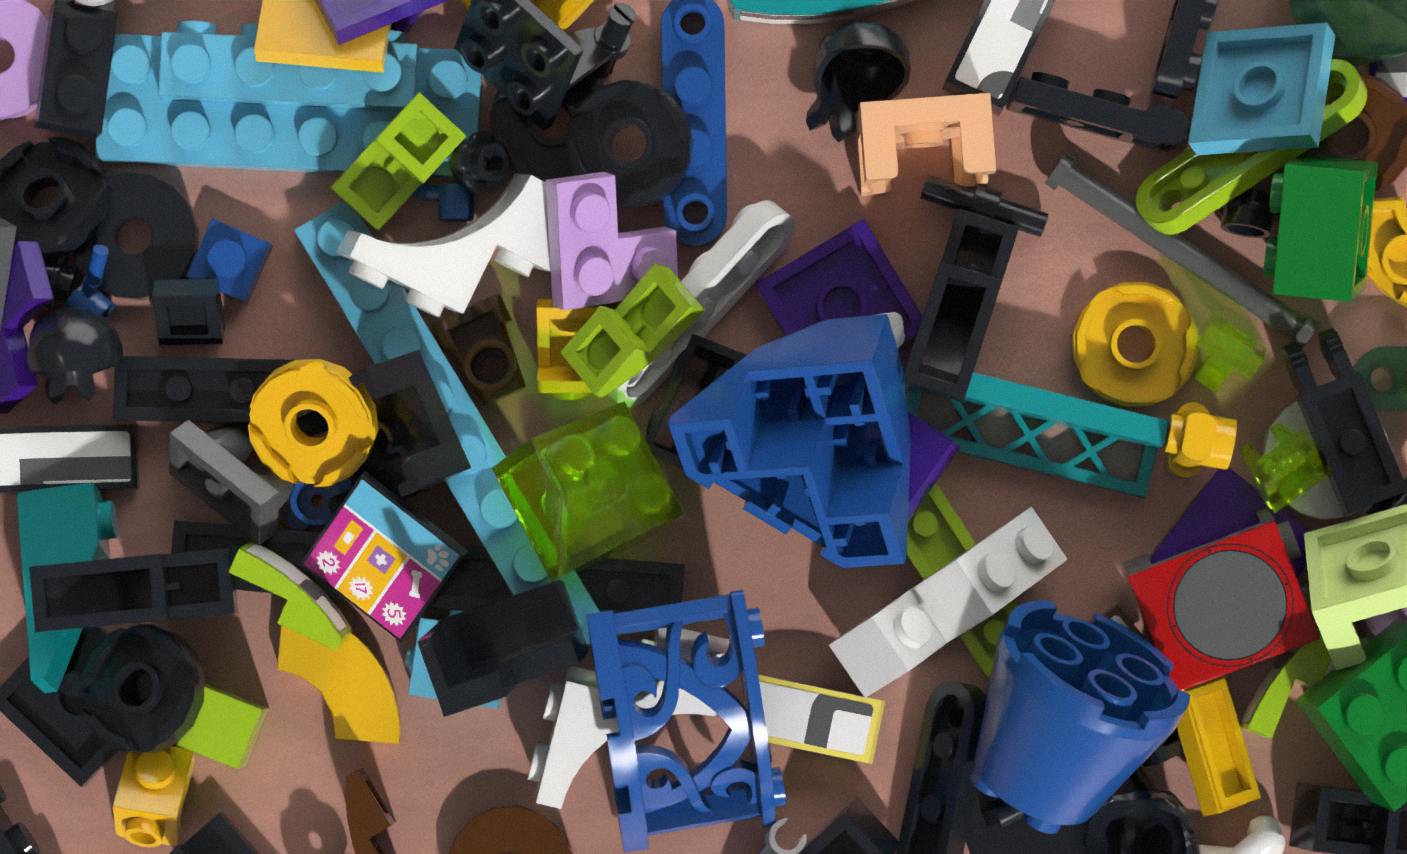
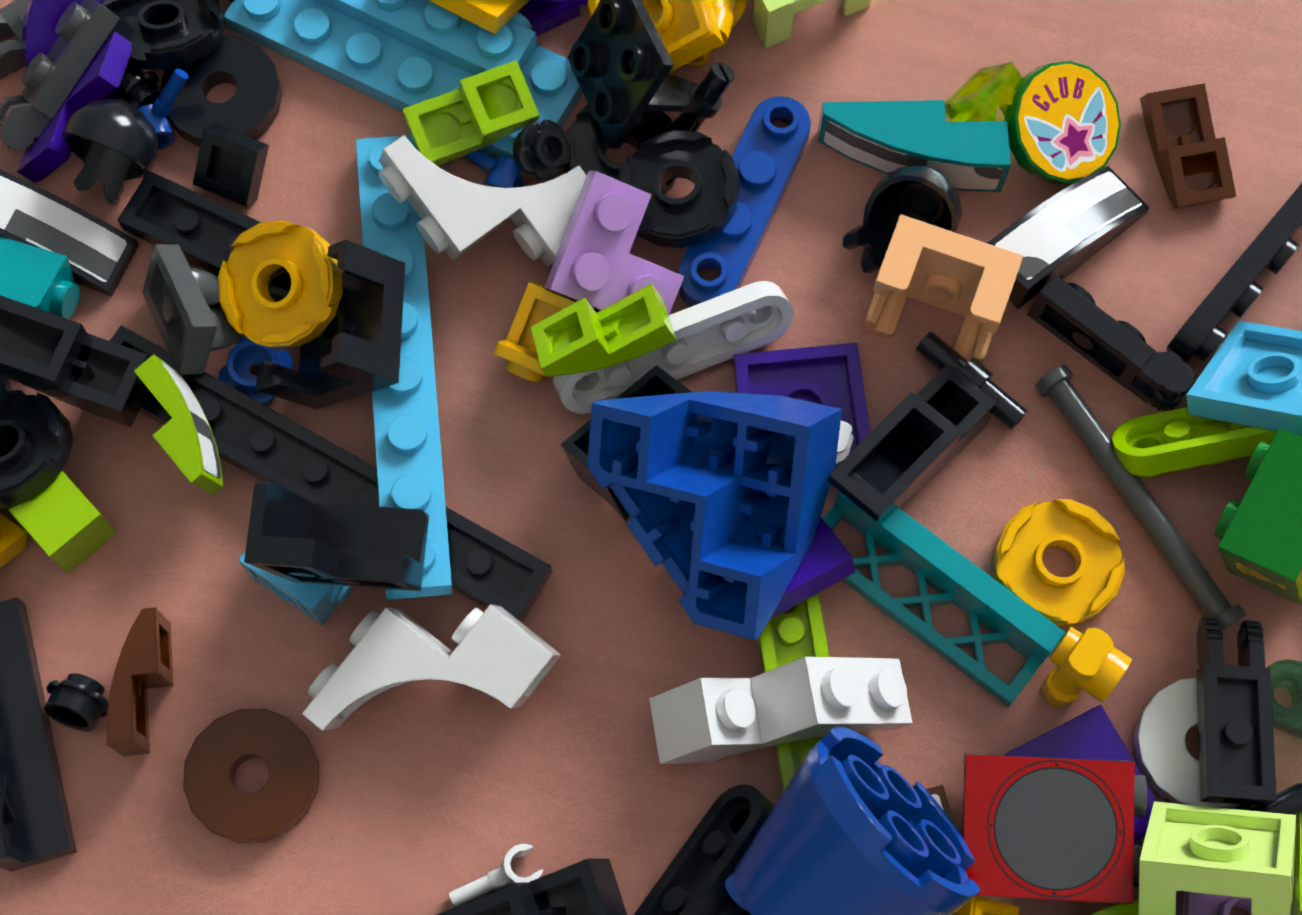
camera: 25 degrees right, 15 degrees down
(231, 258) = (293, 145): blue plate -> none
(350, 682) = (198, 537): yellow tile -> none
(383, 556) = (281, 422): piece -> none
(478, 336) = (466, 295): dark brown plate -> none
(587, 490) = (493, 451): clear neon green slope -> none
(628, 667) = (408, 770): blue fence -> none
(821, 719) = (601, 763): slope -> none
(1226, 351) = (1144, 602): clear neon green tile -> none
(1249, 215) = (1212, 489): black plate -> none
(1286, 469) = (1161, 728): clear neon green tile -> none

